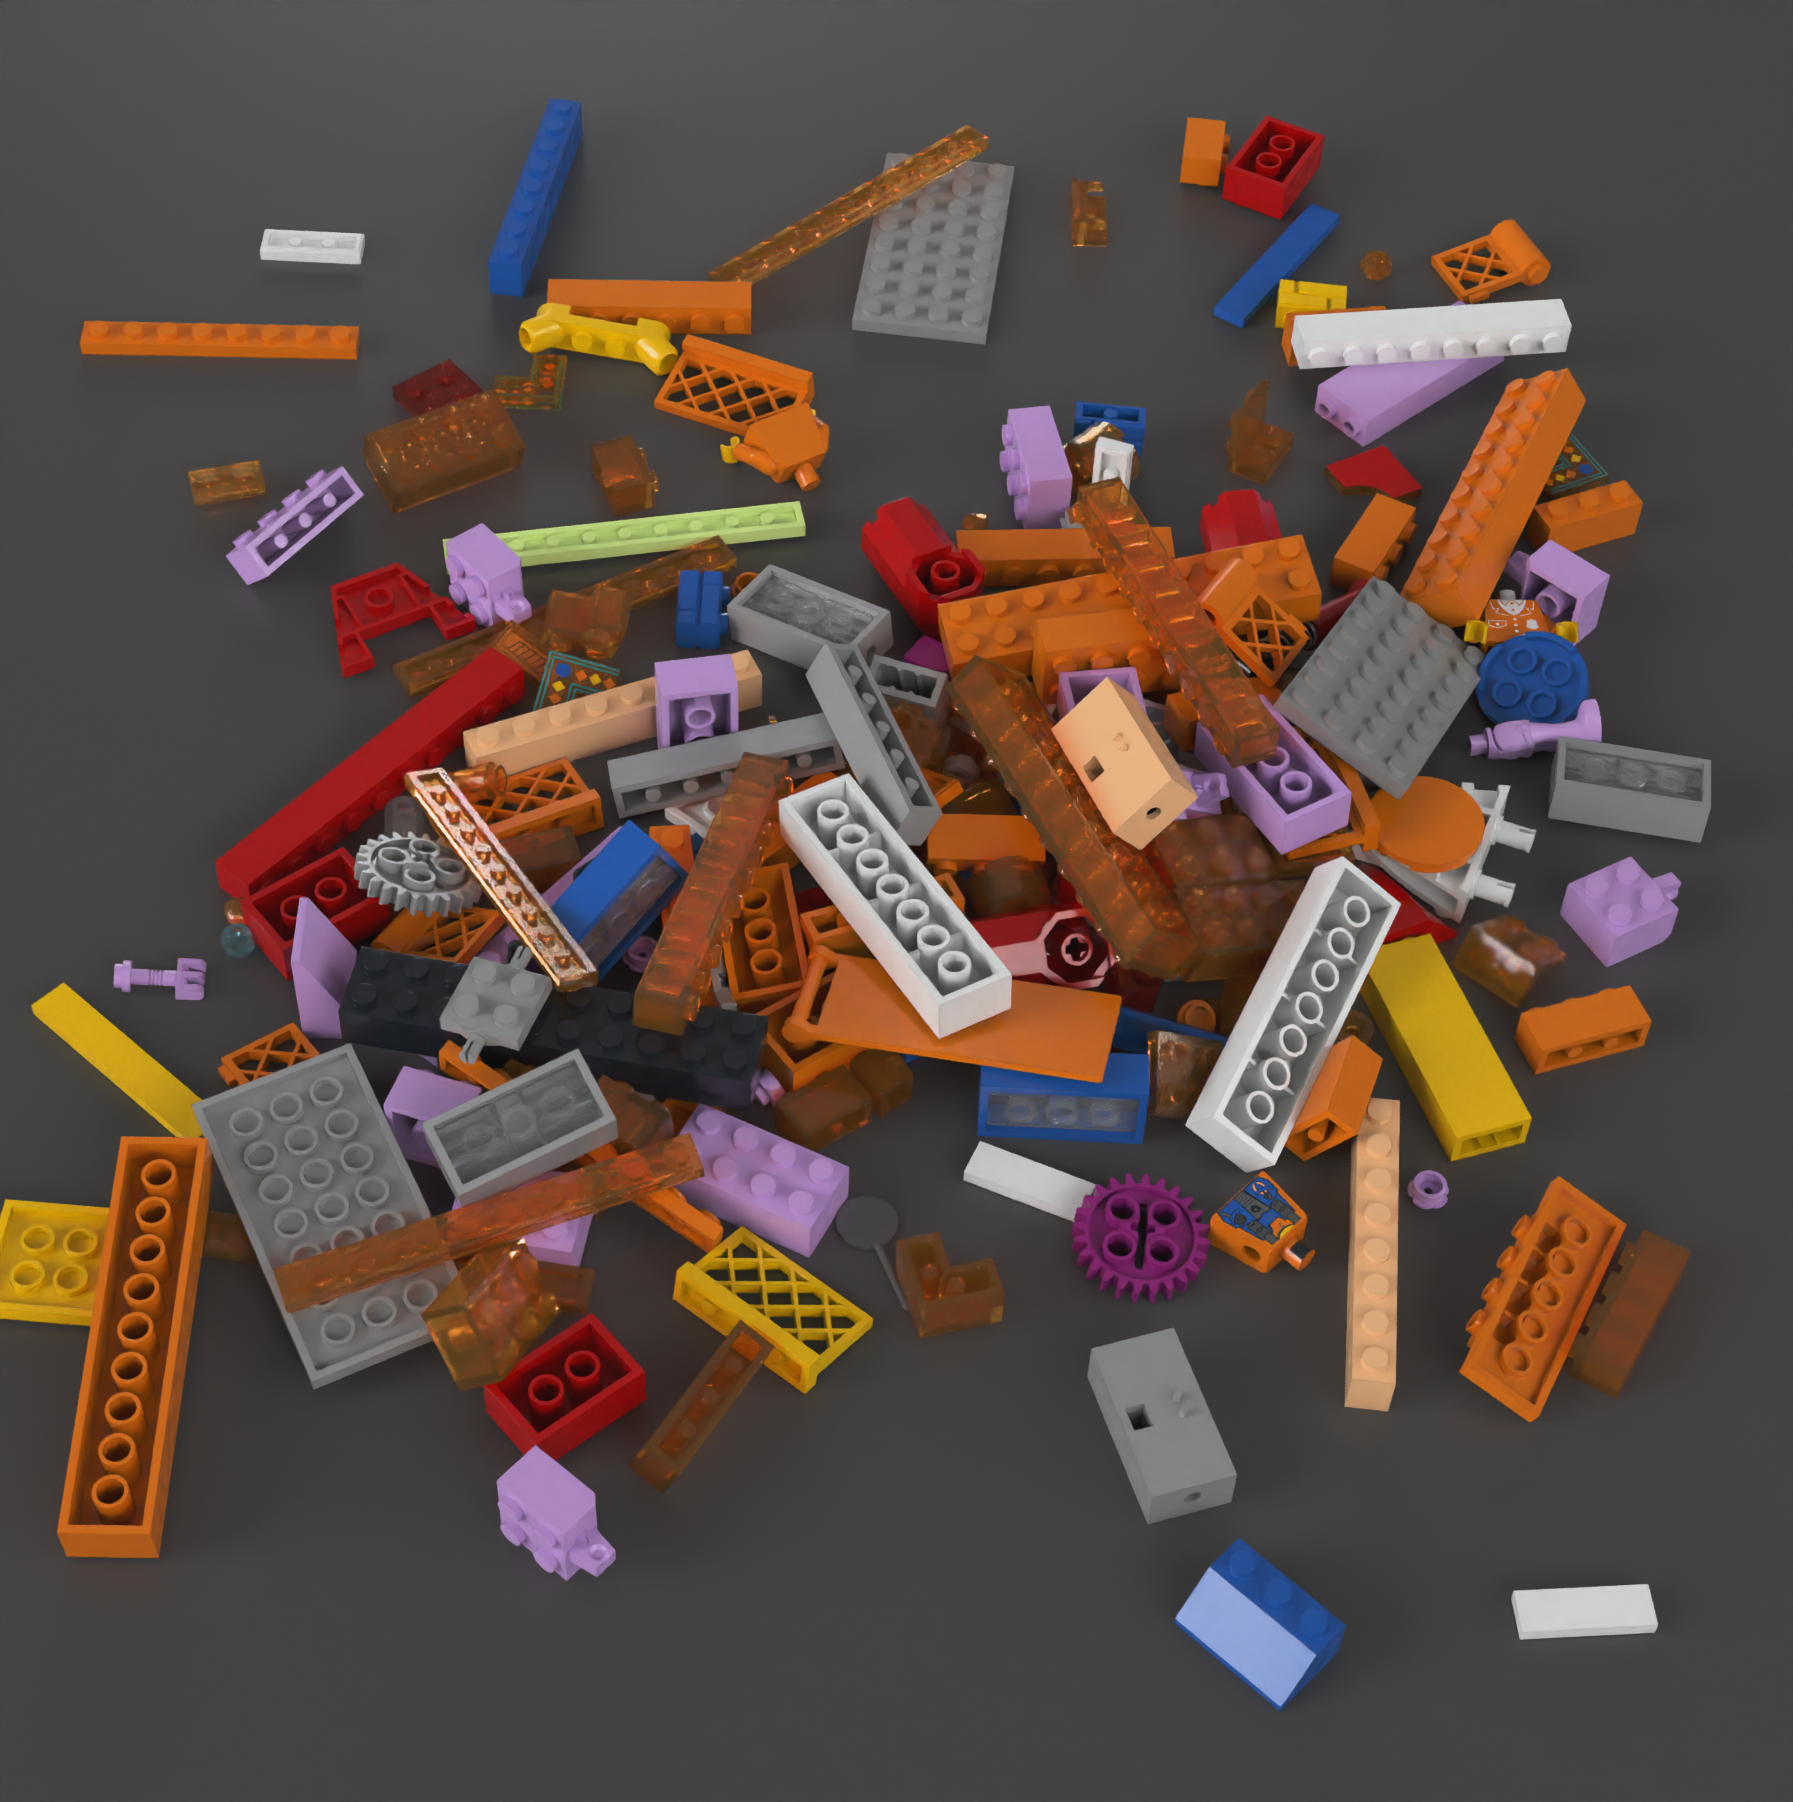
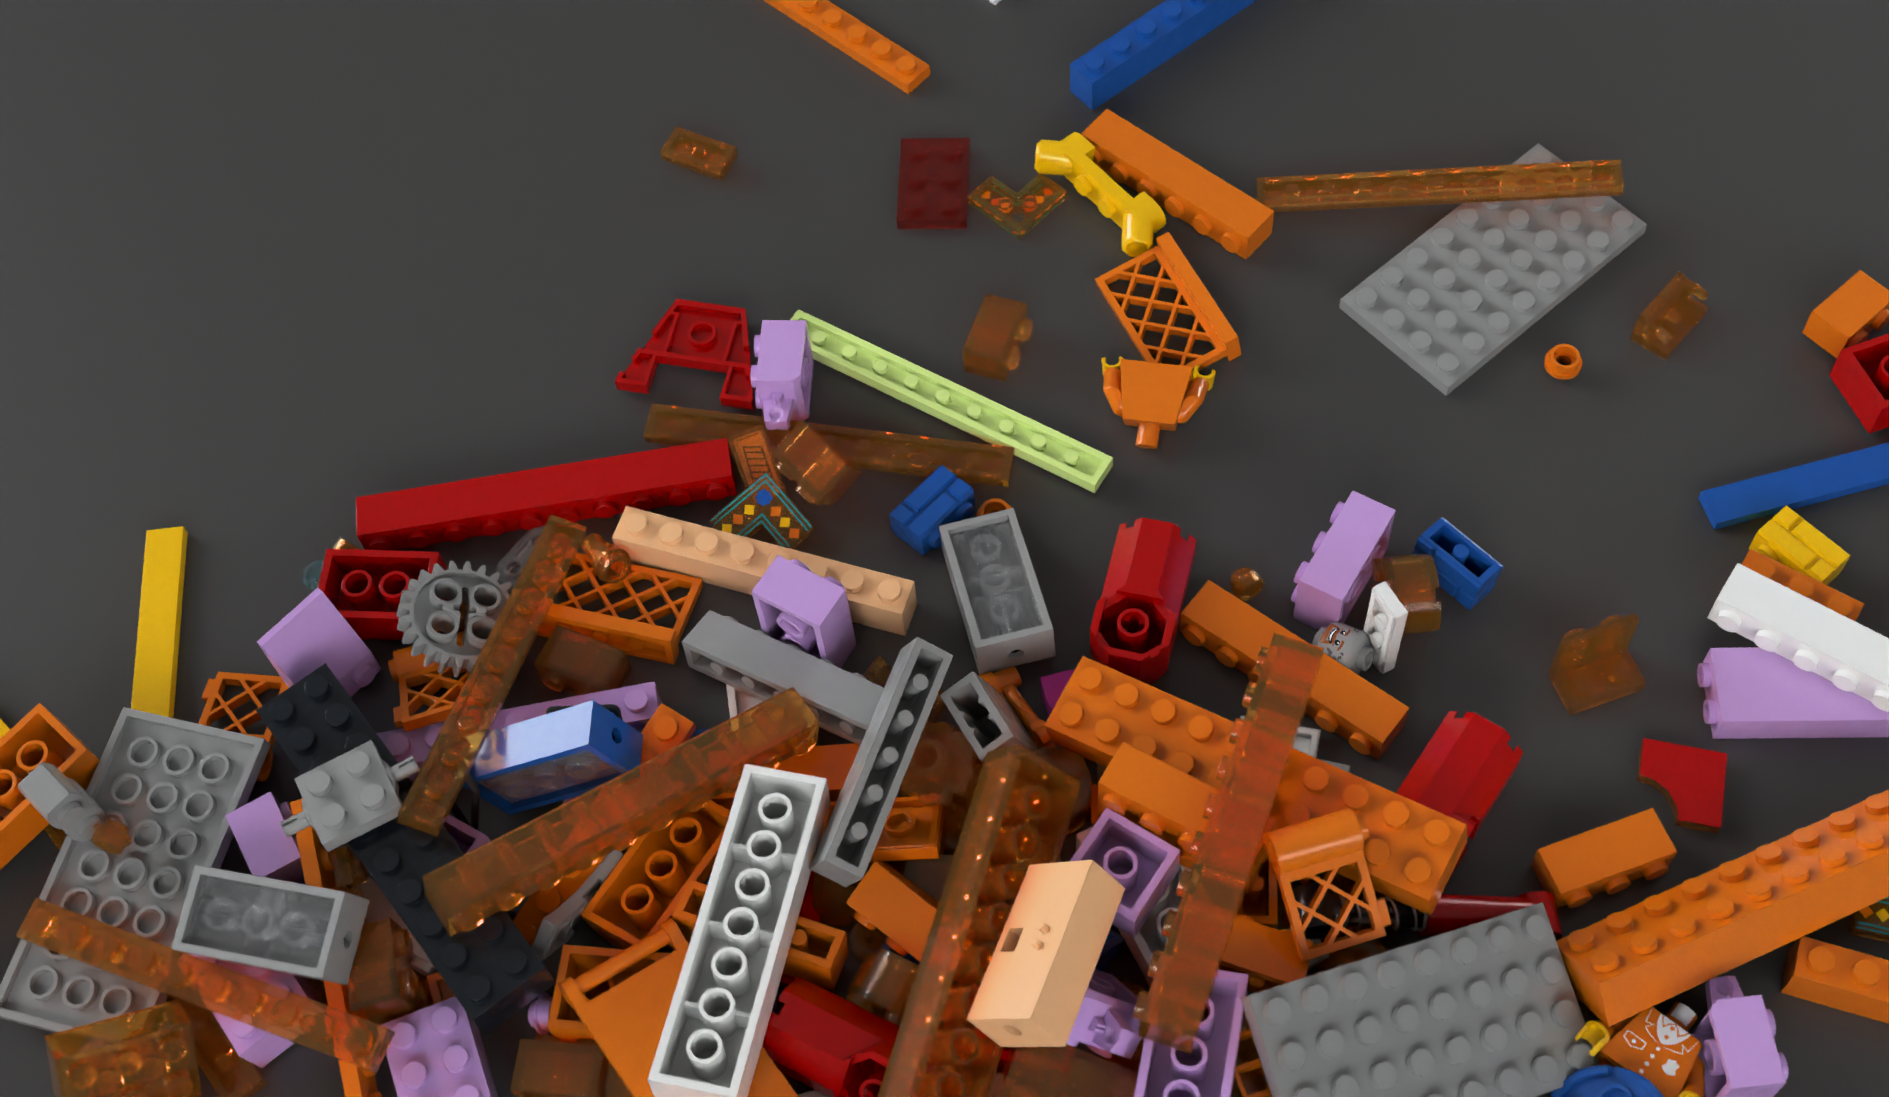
camera: 50 degrees right, 10 degrees up
(187, 979) = (225, 551): lavender hinge -> none
(238, 1177) = (62, 802): none -> light grey brick
(292, 527) = (699, 225): lavender brick -> none
(294, 1186) = (111, 836): none -> clear orange plate
(443, 450) = (870, 225): clear orange brick -> none
(1045, 278) = (1566, 354): none -> orange plate

